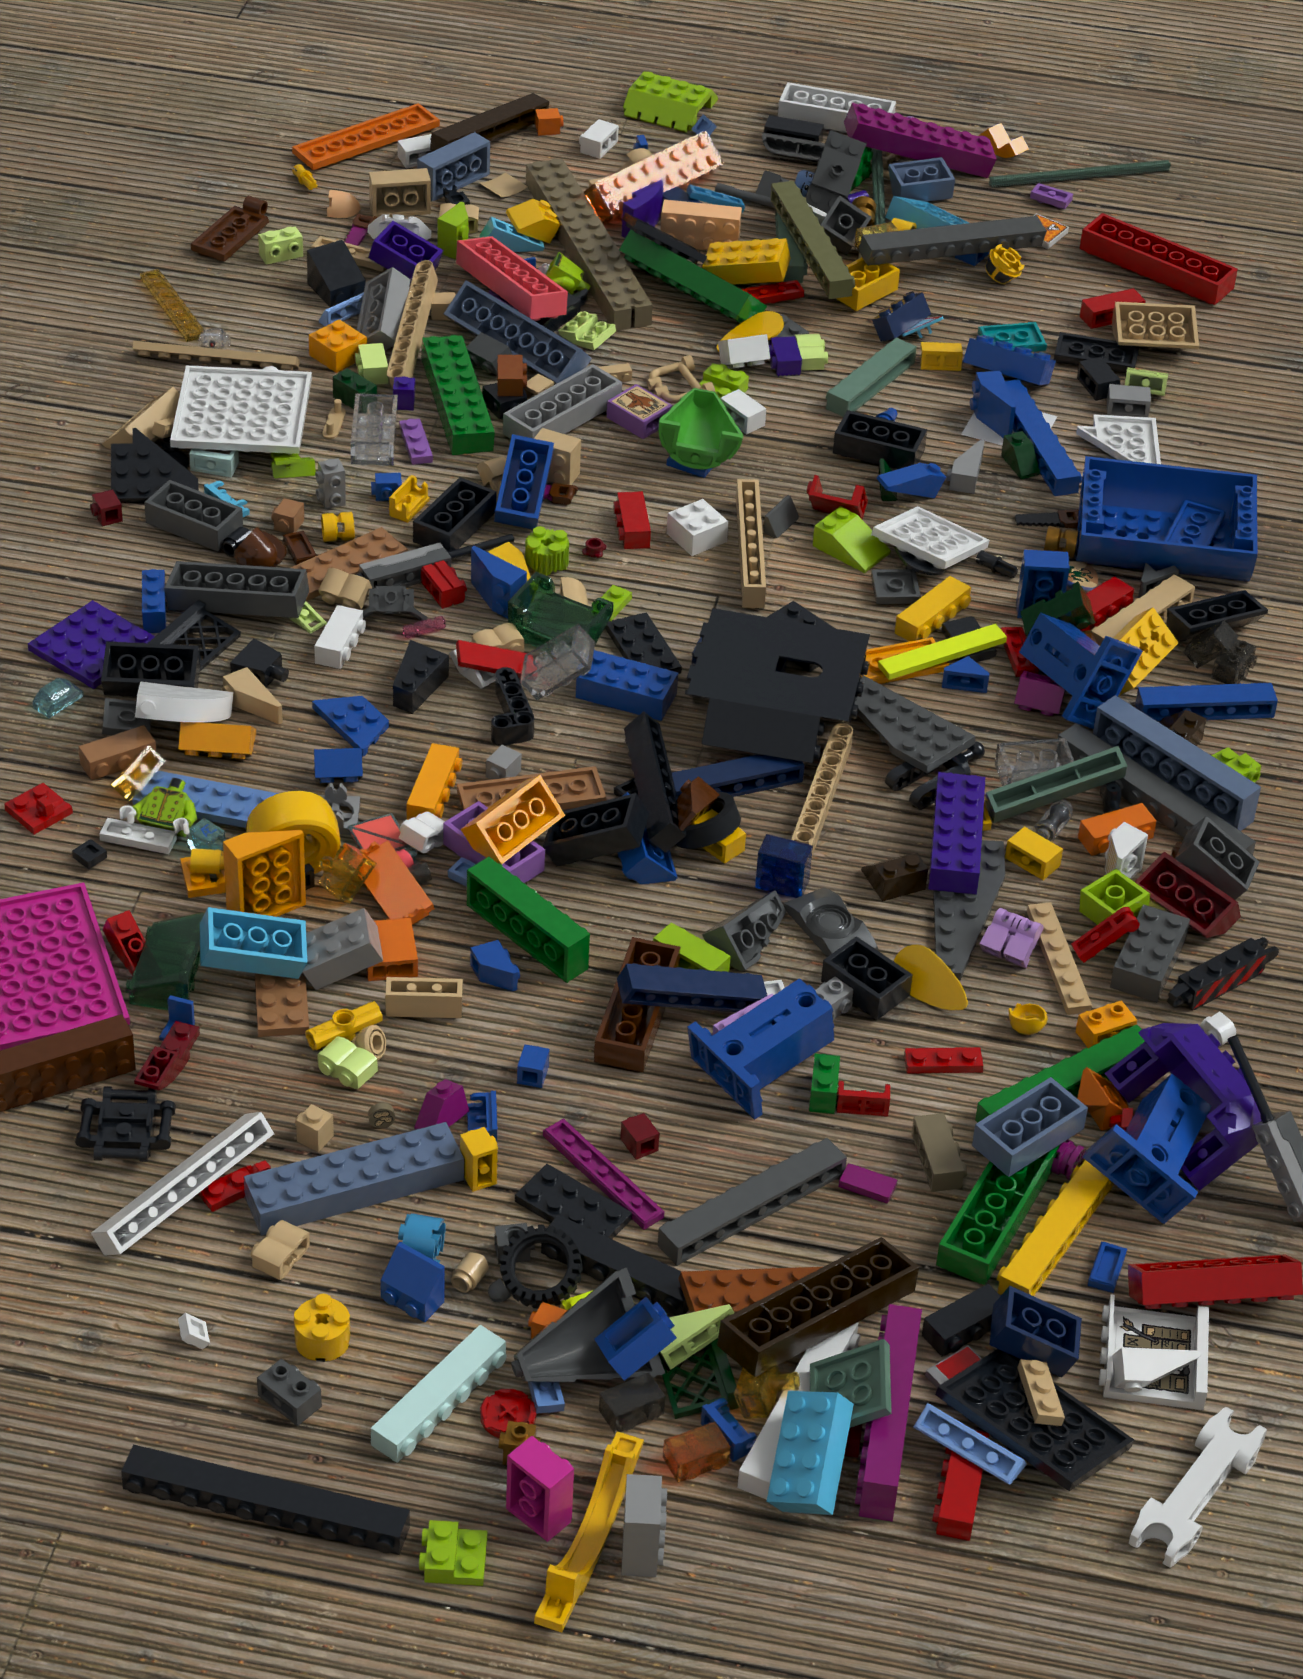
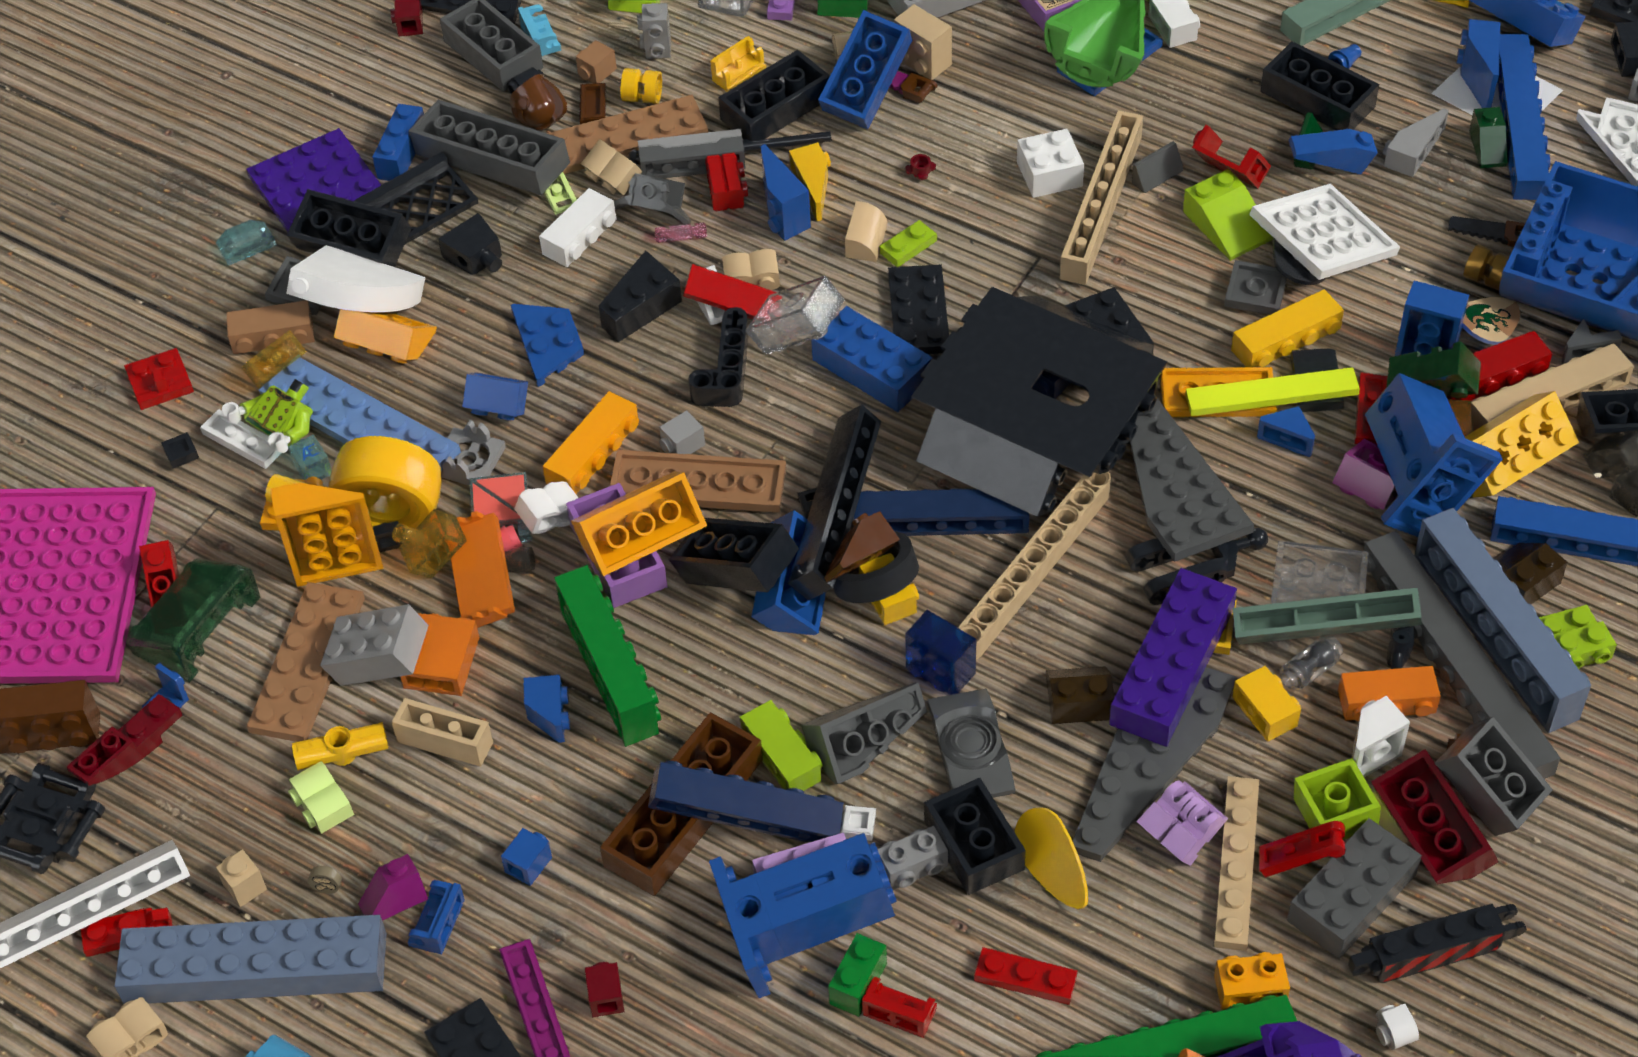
camera: 25 degrees right, 10 degrees up
(252, 695) = (445, 282): tan slope -> none
(253, 943) = (269, 619): medium azure brick -> none
(371, 1039) = (359, 778): tan brick -> none
(385, 485) = (718, 40): blue brick -> none
(458, 871) = (571, 562): medium blue plate -> none
(479, 1158) = (396, 975): yellow brick -> none
(544, 614) = (815, 245): clear green windscreen -> none
(547, 550) = (860, 161): lime brick -> none
(632, 520) = (979, 139): red brick -> none
(996, 564) = (1393, 279): black axle -> none
(1027, 1018) = (1154, 944): yellow hair -> none

